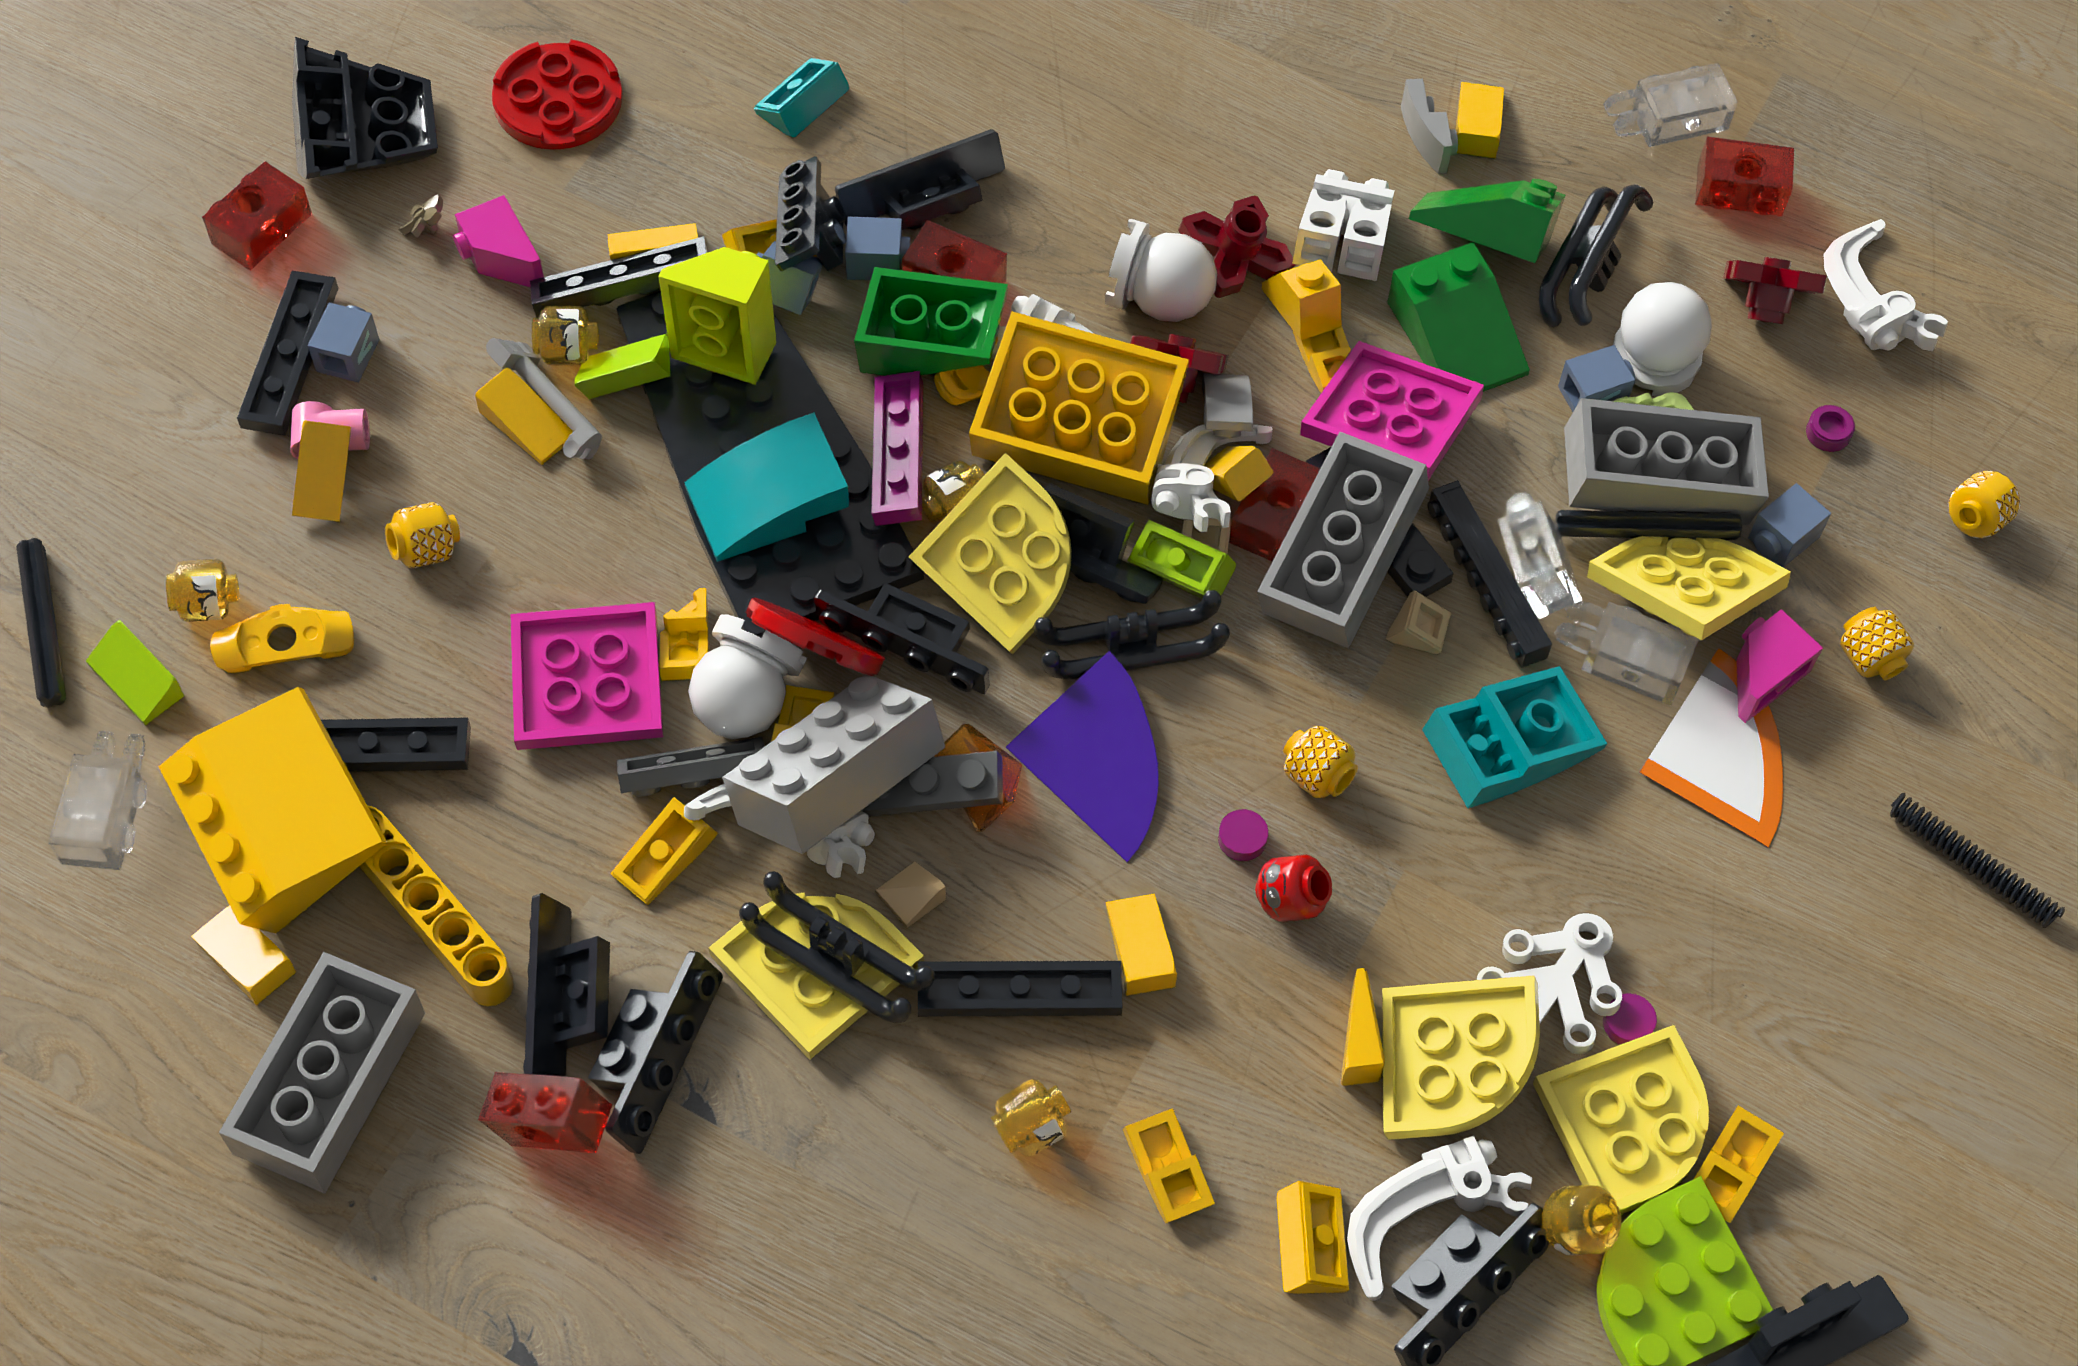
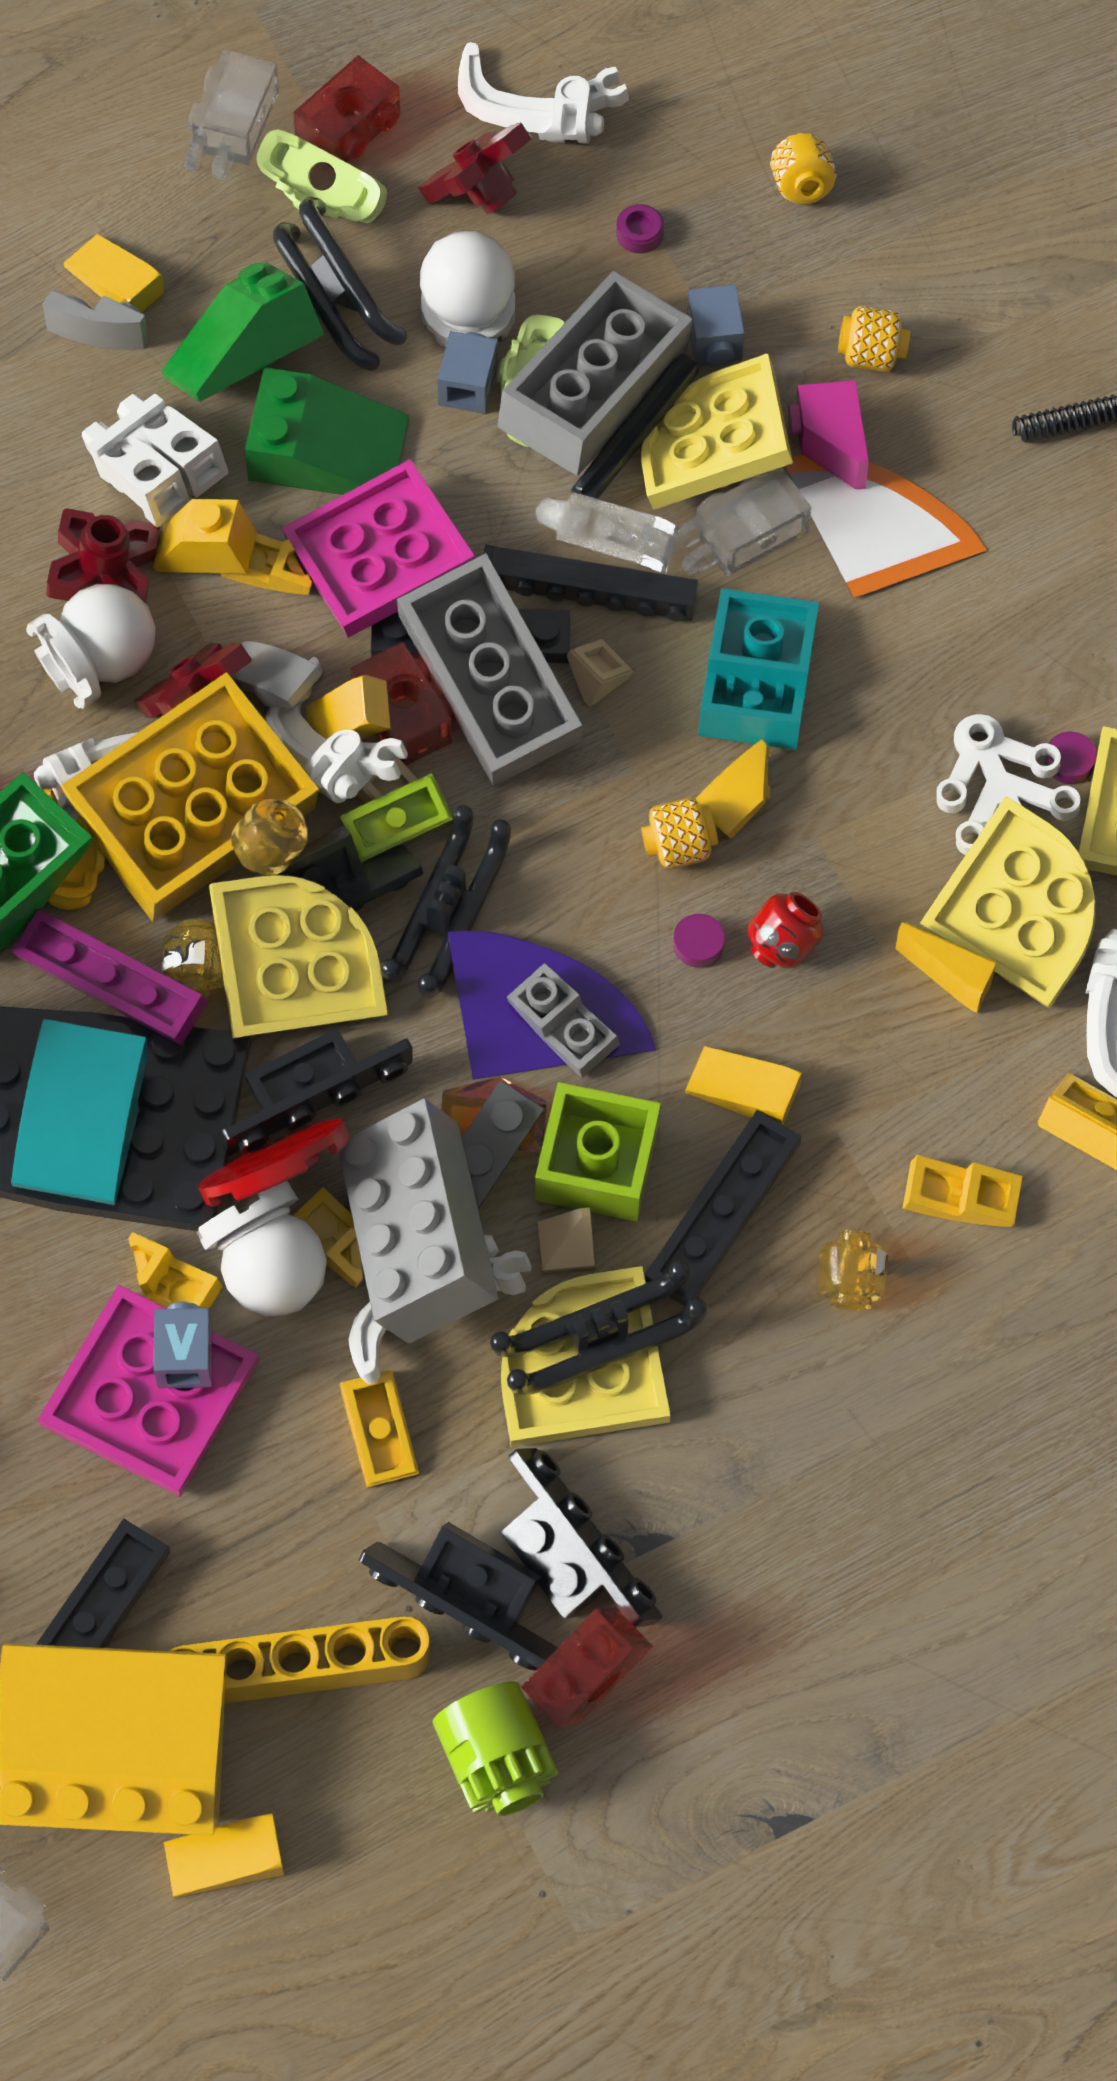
camera: 55 degrees left, 5 degrees up
(323, 1072) = (412, 1840): light grey brick -> none
(435, 1087) = (496, 1749): none -> lime gear
(624, 668) = (183, 1346): none -> sand blue brick
(686, 767) = (312, 1351): dark grey plate -> none
(995, 862) = (597, 1151): none -> lime brick
(1074, 468) = (269, 836): none -> clear yellow head
(1096, 776) = (563, 1021): none -> light grey slope
(1395, 785) = (739, 790): none -> yellow slope
(1669, 164) = (290, 163): none -> yellowish green piece

